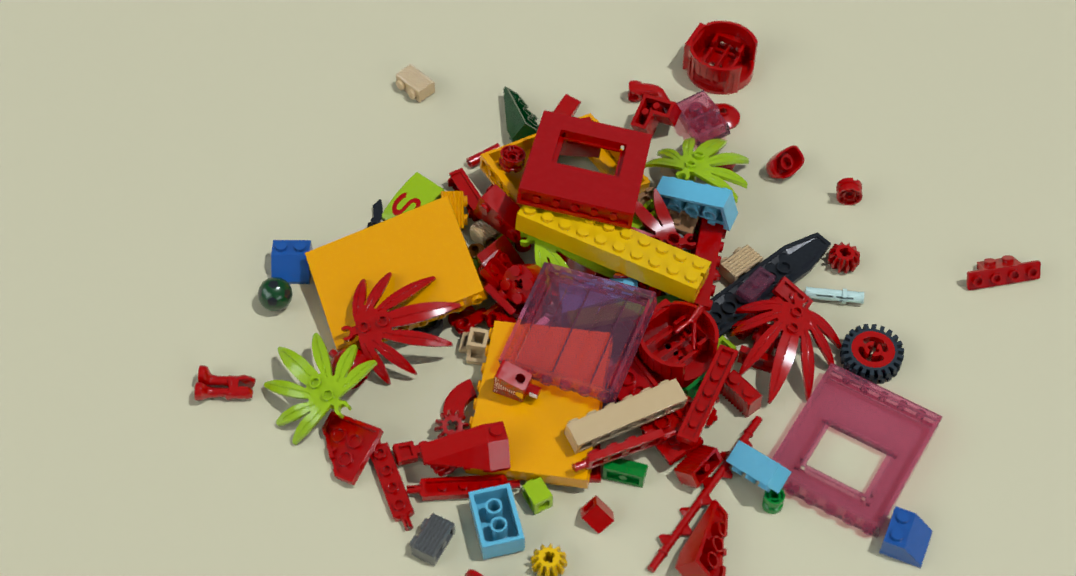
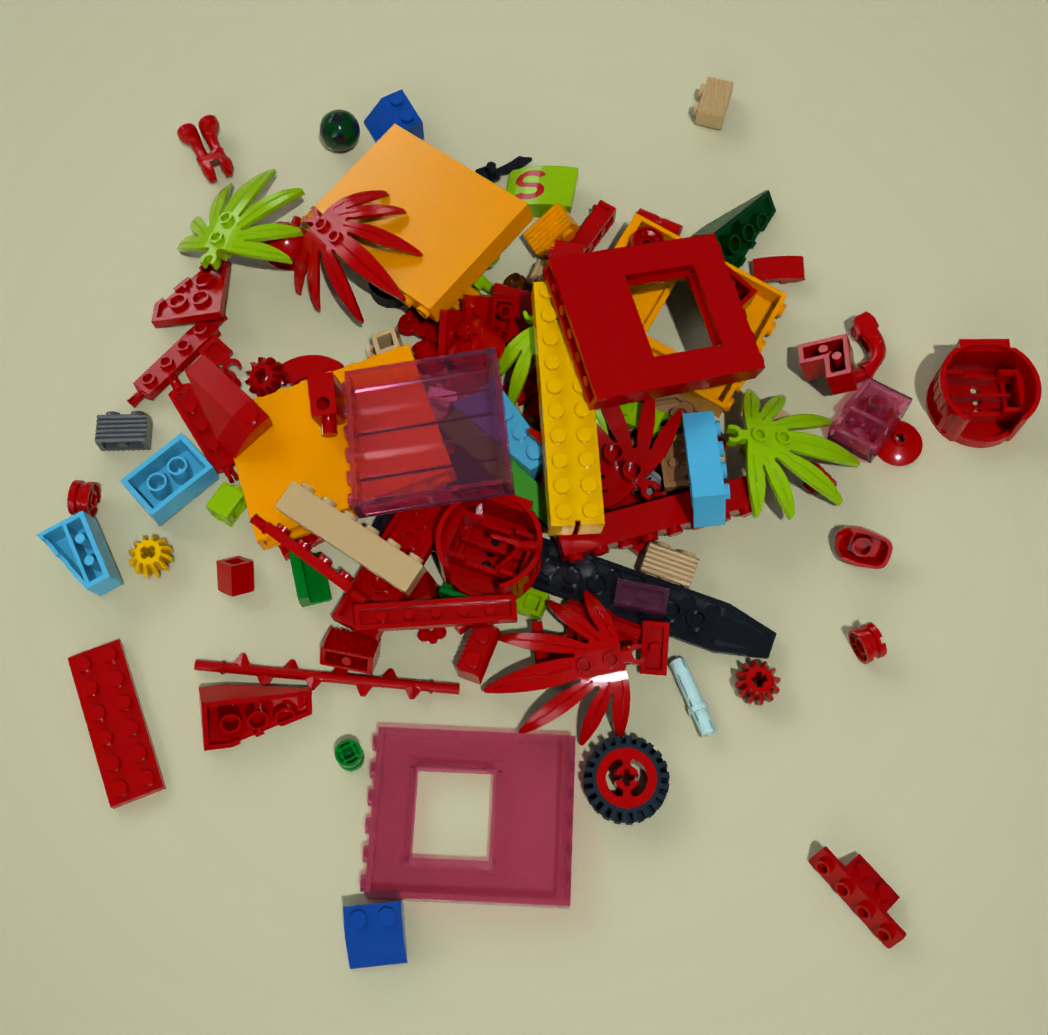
camera: 60 degrees right, 15 degrees up
(758, 467) = (371, 717): medium azure brick -> none

